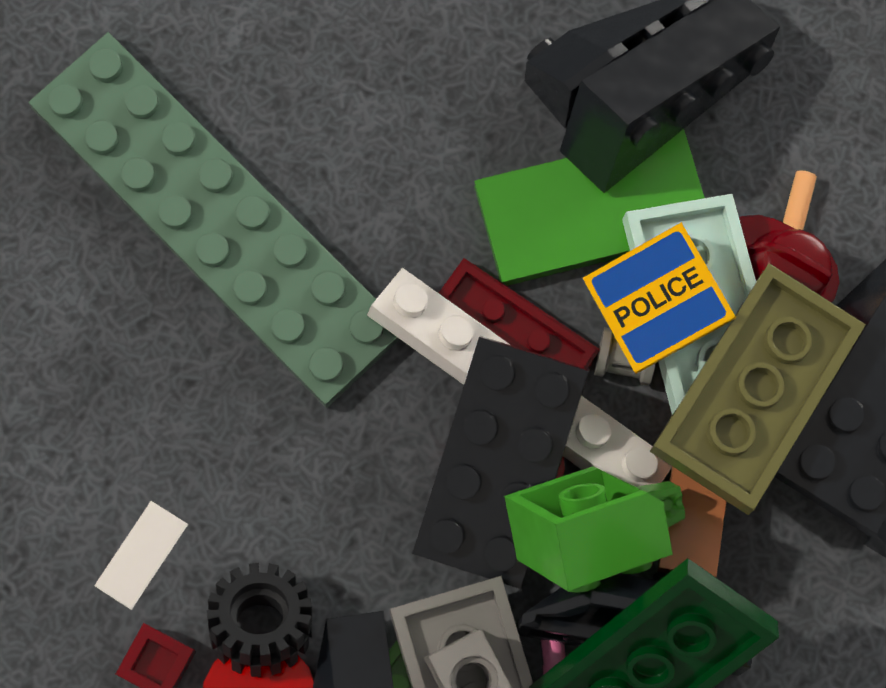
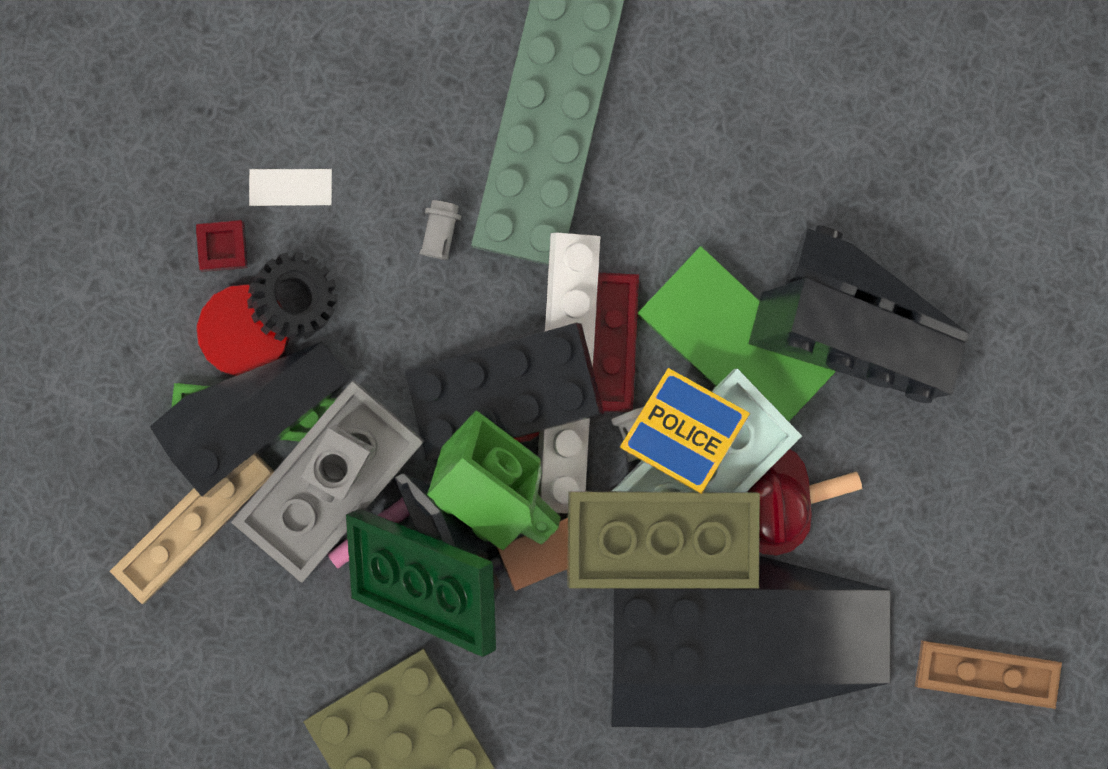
camera: 55 degrees right, 10 degrees up
(288, 426) = (439, 229): none -> light grey pin

